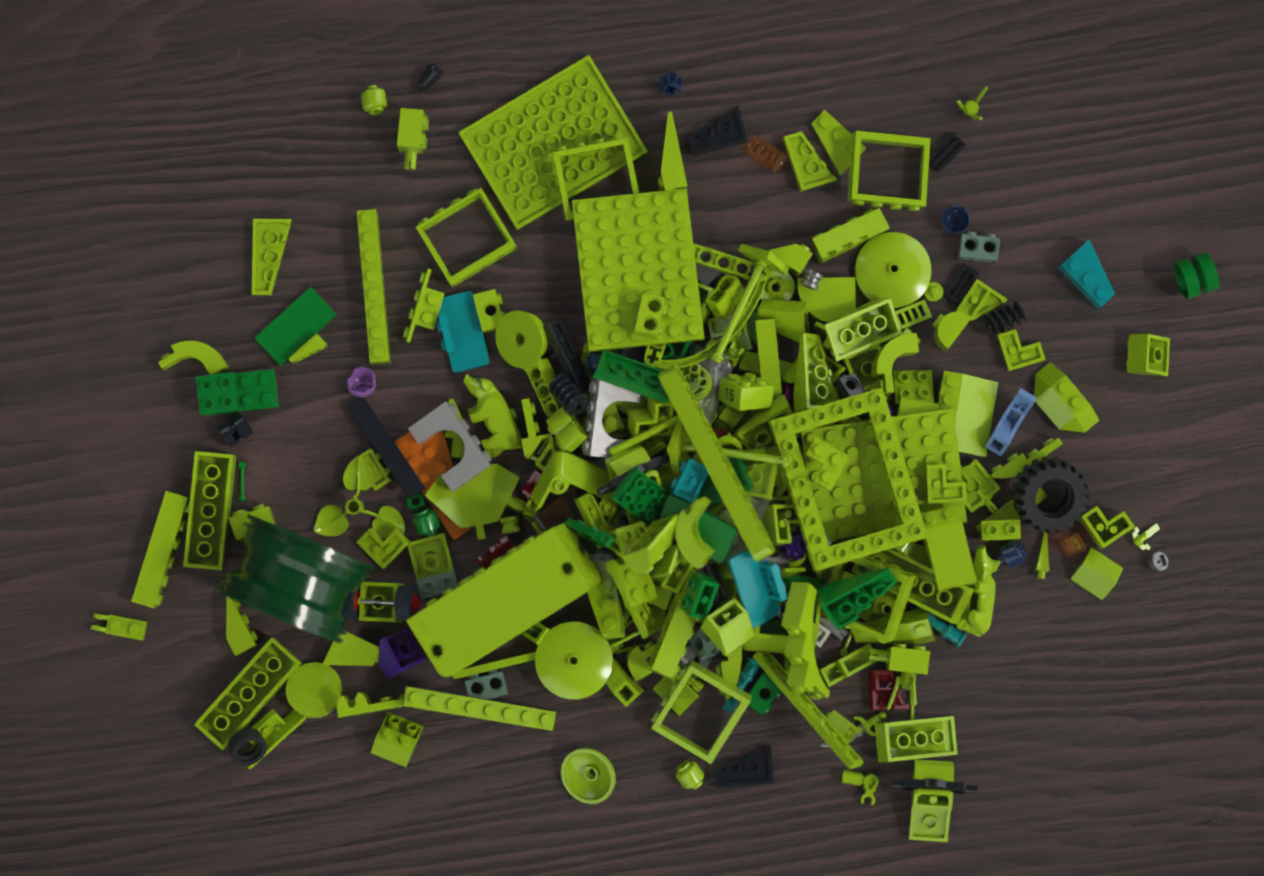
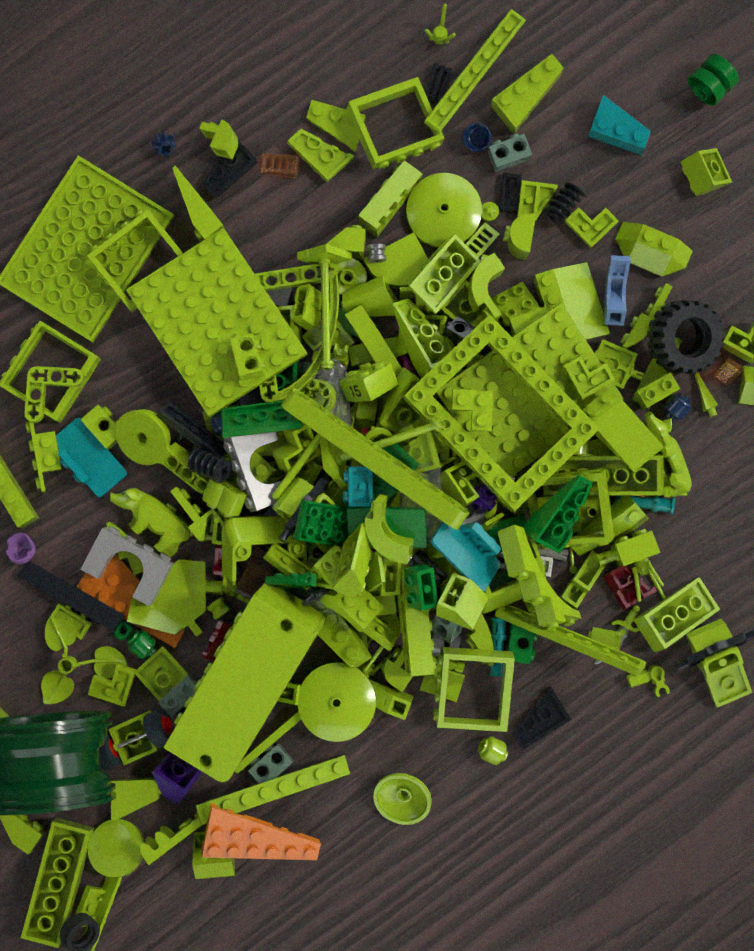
camera: 25 degrees left, 0 degrees up
(437, 739) = (251, 838): none -> orange wing
(453, 246) = (40, 385): none -> lime beam
(728, 107) = (224, 138): none -> lime brick
(985, 158) = (474, 71): none -> lime tile
(1016, 203) = (524, 95): none -> lime wedge

